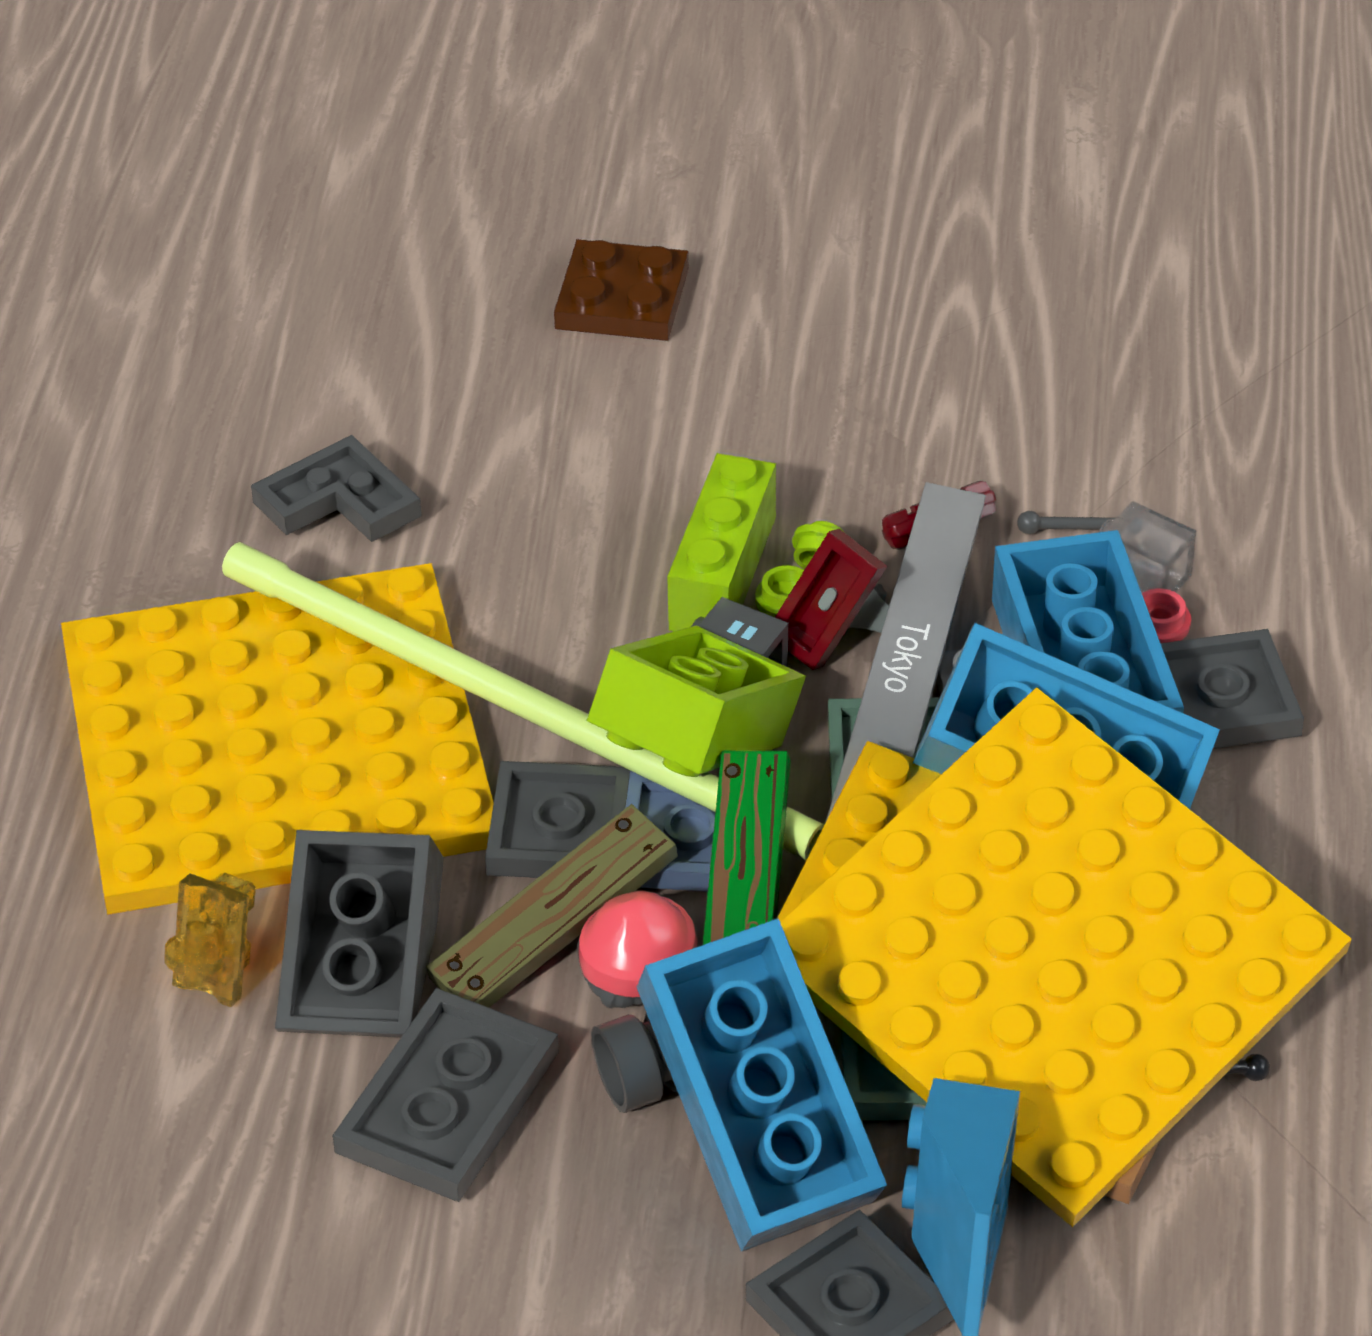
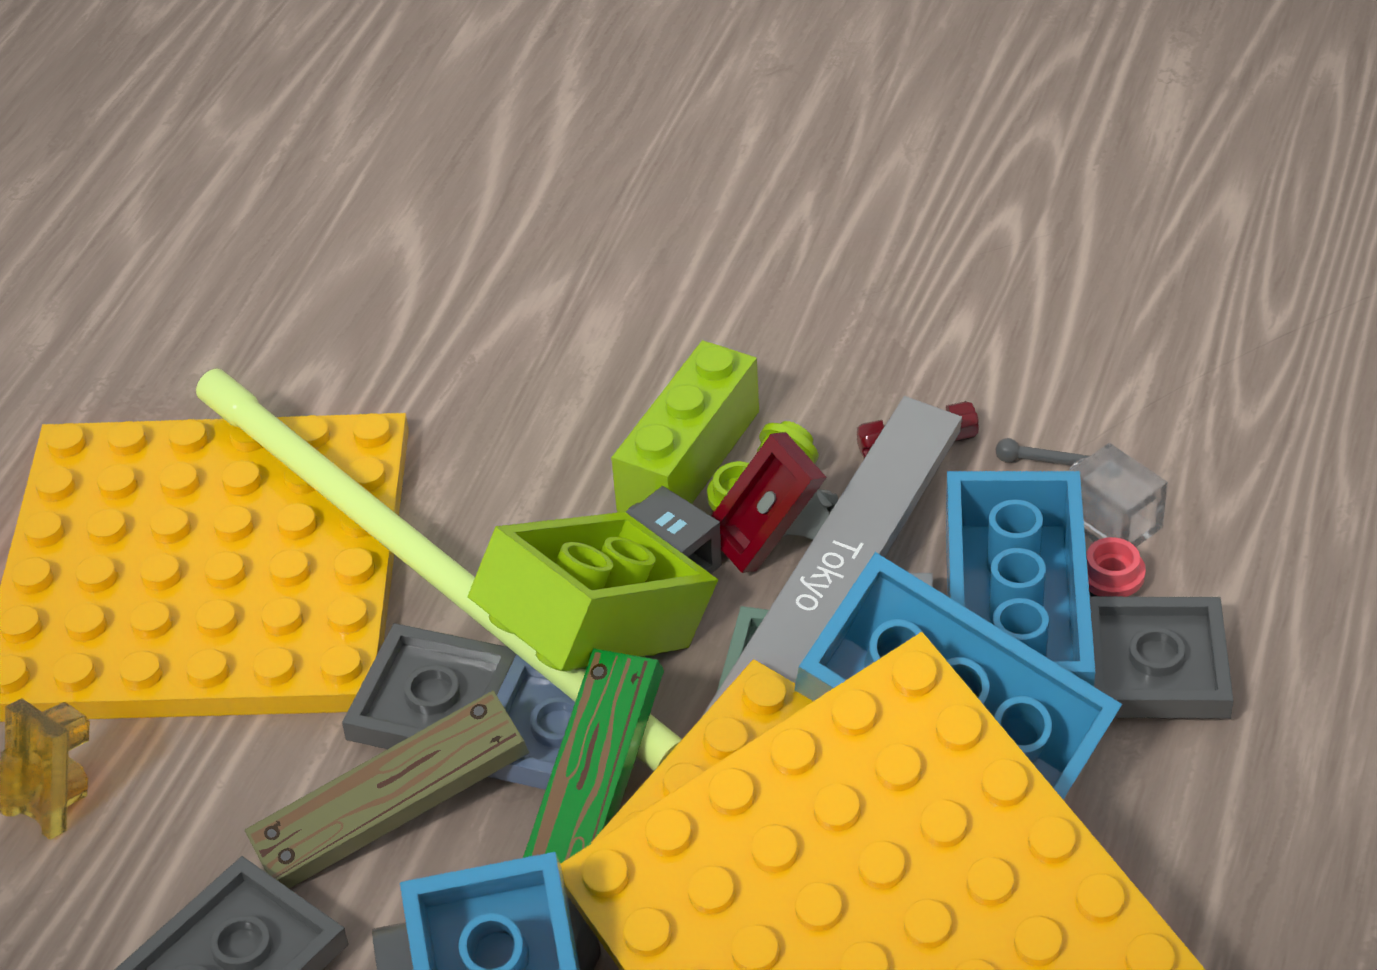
camera: 15 degrees right, 0 degrees up
(339, 479) = (348, 320): dark grey plate -> none
(358, 932) = (189, 782): dark grey slope -> none
(621, 289) = (682, 173): reddish brown plate -> none
(627, 937) = (456, 832): coral hair -> none

